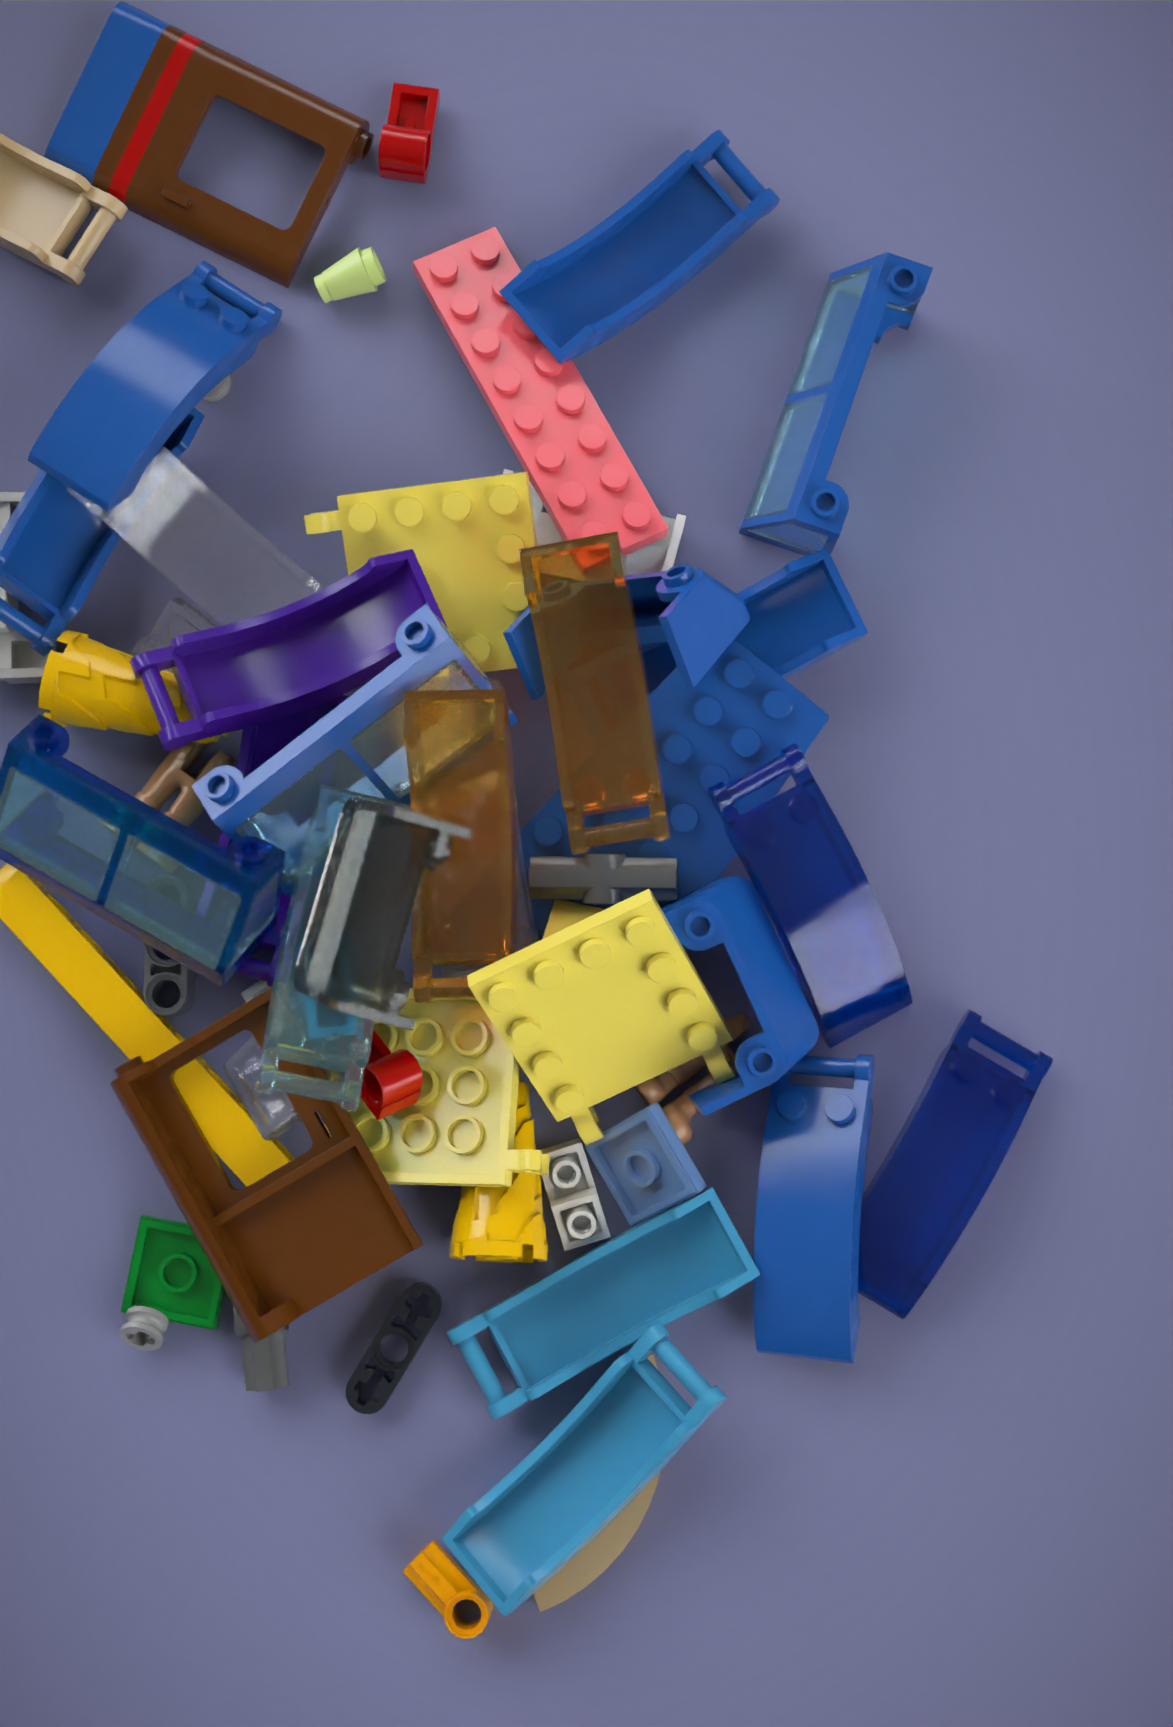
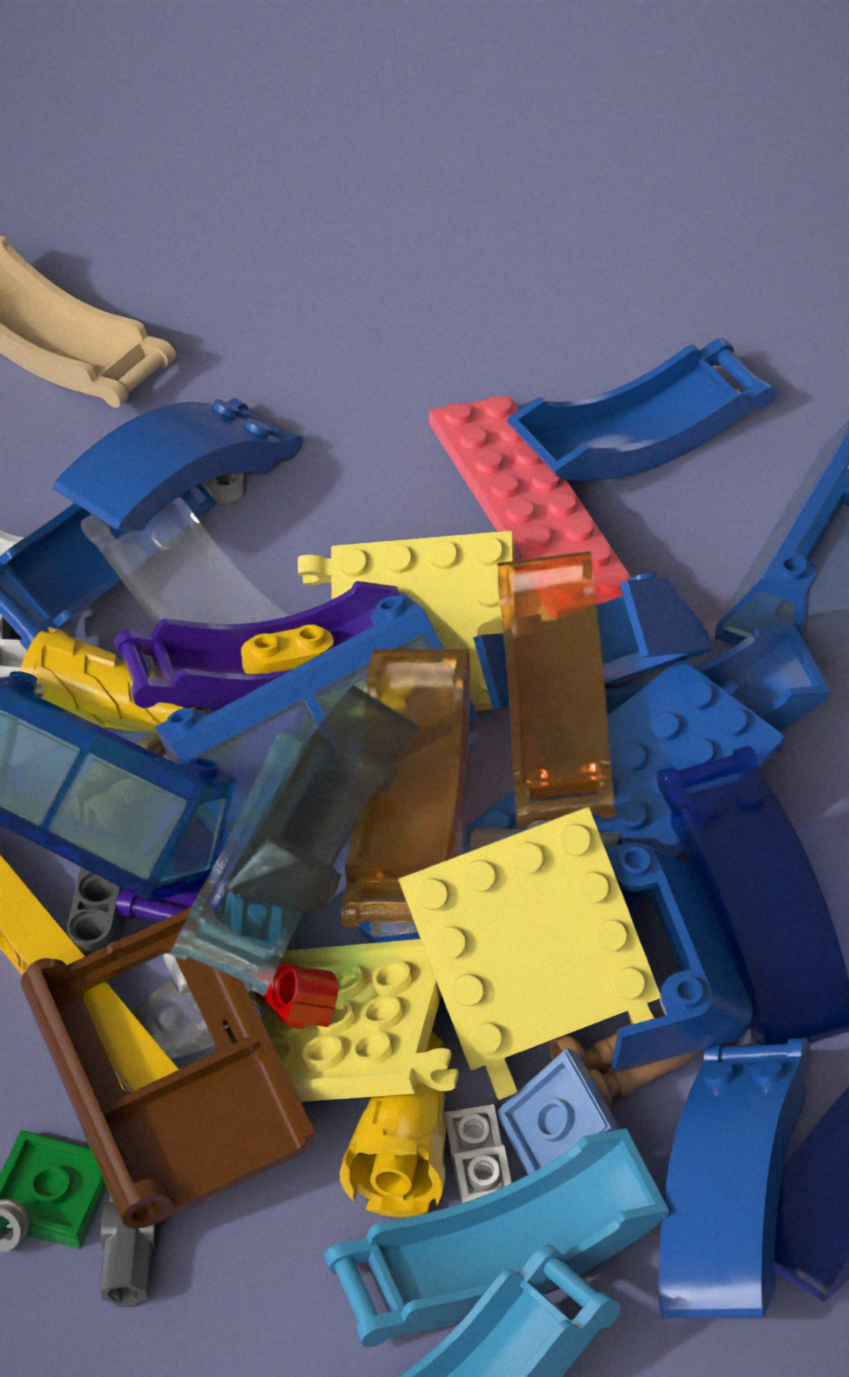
camera: 10 degrees right, 35 degrees down
(142, 111) = (210, 285): reddish brown piece -> none
(312, 646) = (284, 649): none -> yellow plate
(351, 276) = (371, 420): yellowish green cone -> none
(364, 1371) = (263, 1300): black beam -> none
(409, 133) = (439, 328): red plate -> none

